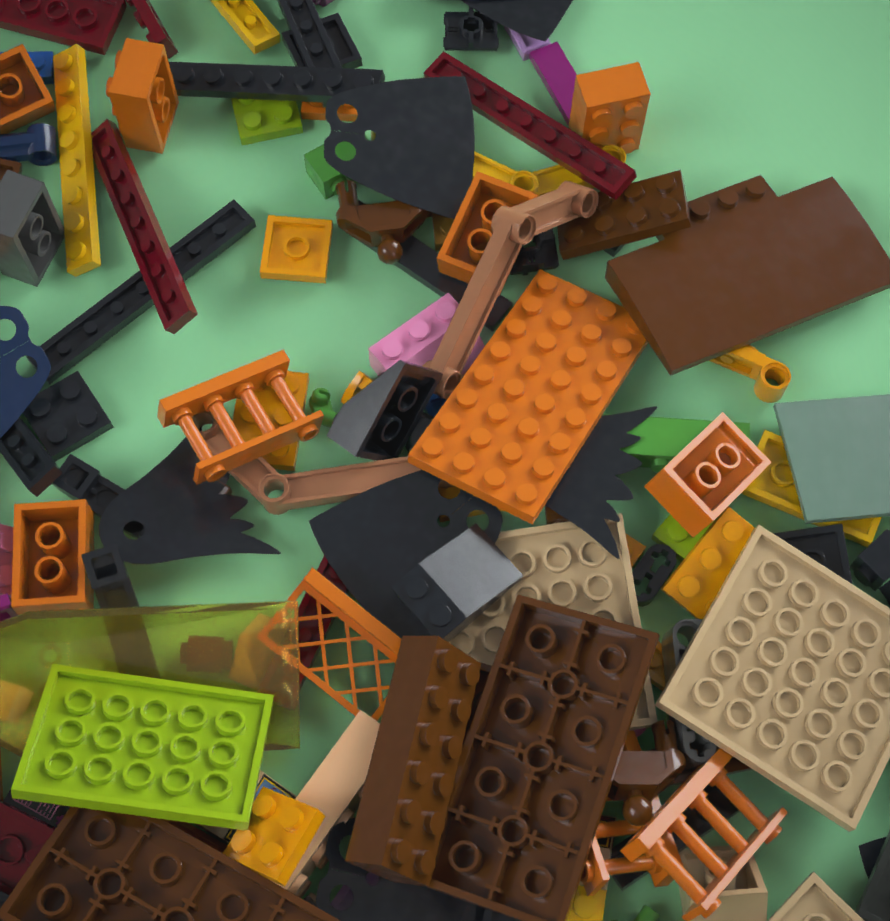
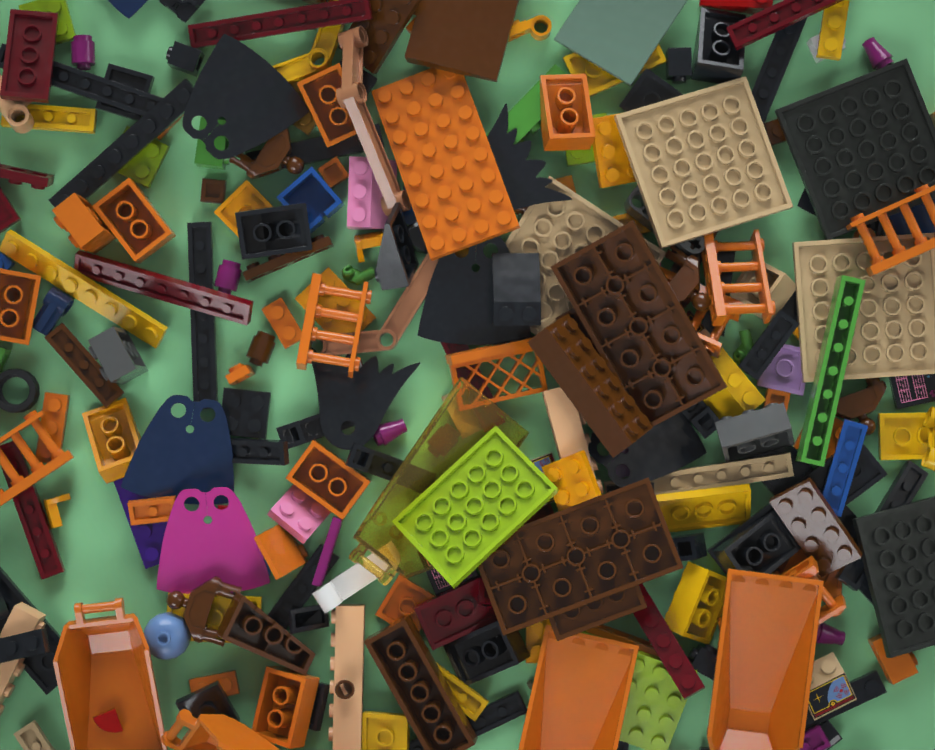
camera: 50 degrees left, 20 degrees up
(103, 368) = (239, 373): none -> orange plate
(154, 374) = (261, 348): none -> reddish brown brick
(167, 584) = (389, 431): none -> magenta cone
(190, 147) = (134, 220): none -> orange brick
(207, 364) = (283, 322): none -> orange plate
(209, 281) = (228, 276): none -> magenta brick
(272, 321) = (280, 261): none -> reddish brown plate
(292, 202) = (213, 191): none -> reddish brown tile
(293, 273) = (273, 231): none -> black slope
(364, 294) = (316, 194): none -> blue piece
(405, 65) = (184, 58): none -> black brick
(416, 297) = (333, 172): none -> orange plate
(656, 579) = (592, 182): black beam -> none

